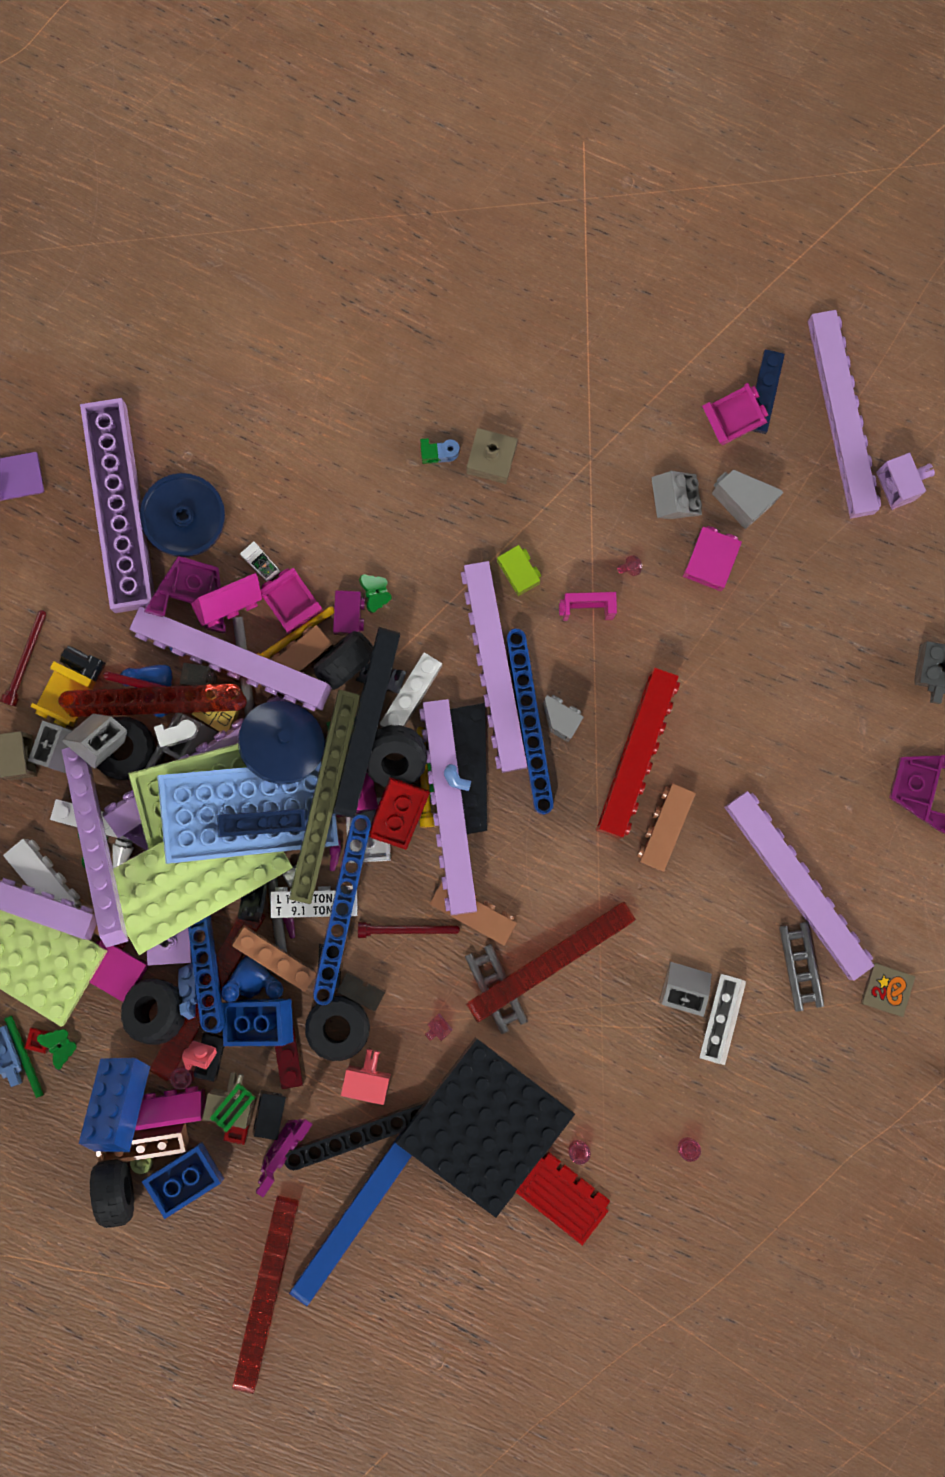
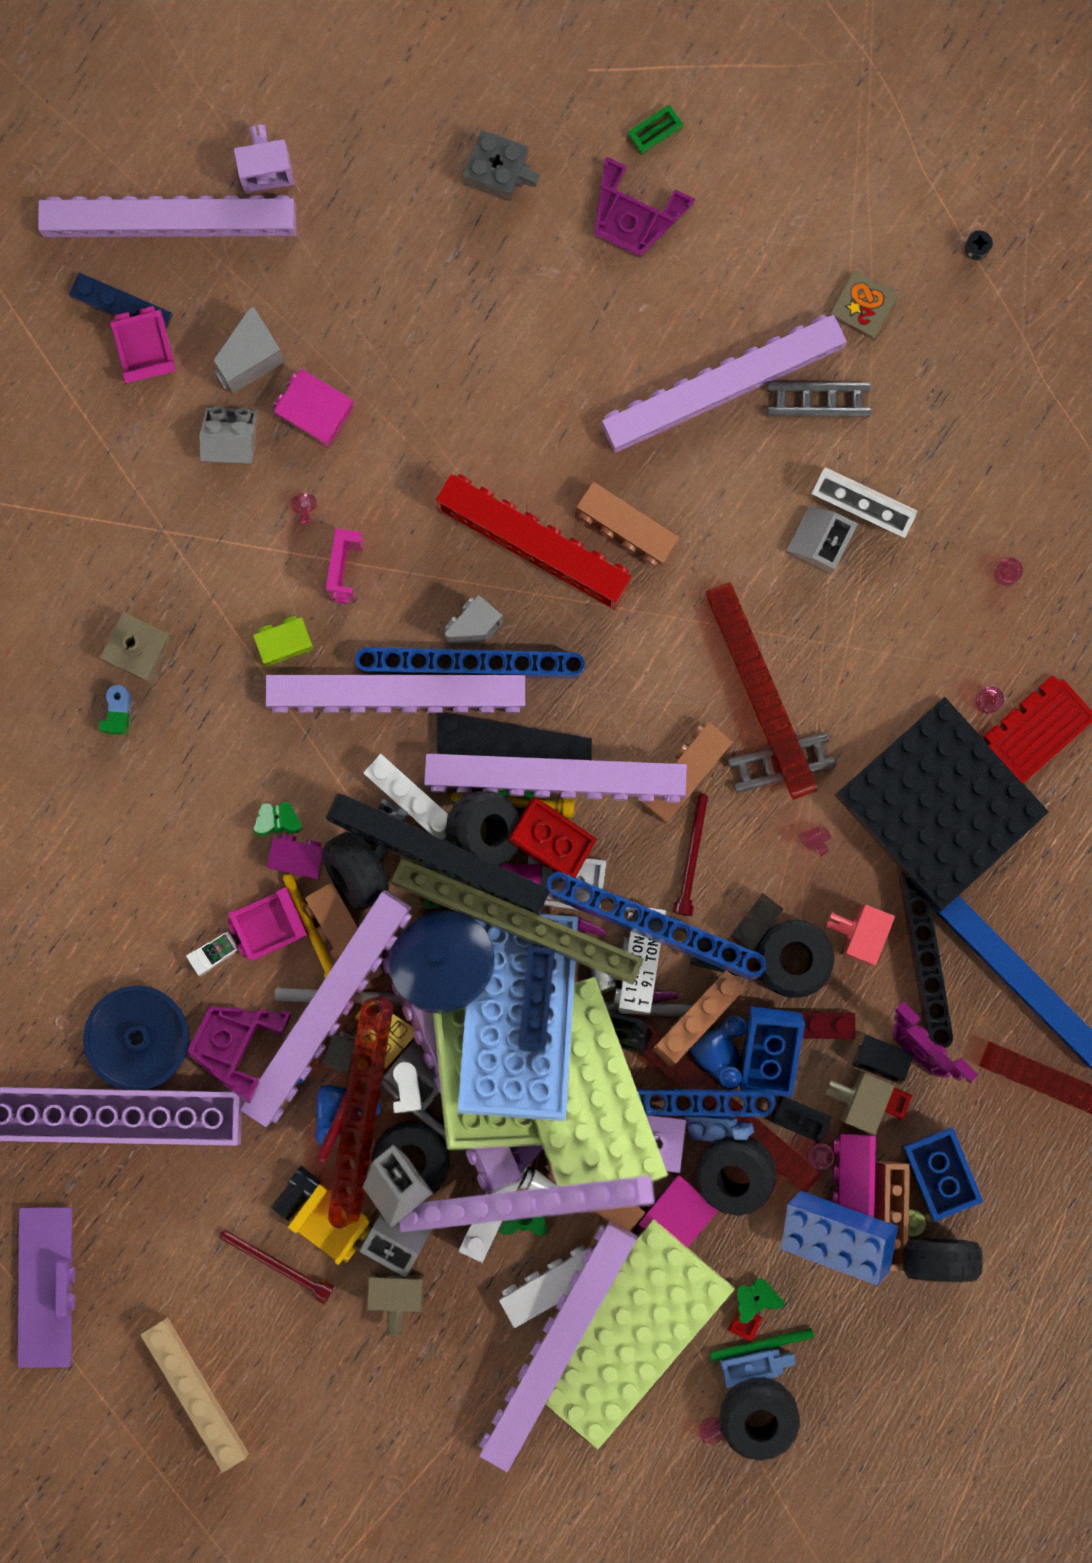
camera: 75 degrees left, 0 degrees up
(198, 1055) = (798, 1129): coral bracket -> none
(220, 1122) = (881, 1112): green tile -> none
(228, 601) = (255, 999): dark pink slope -> none
(454, 780) = (524, 763): medium blue arm -> none

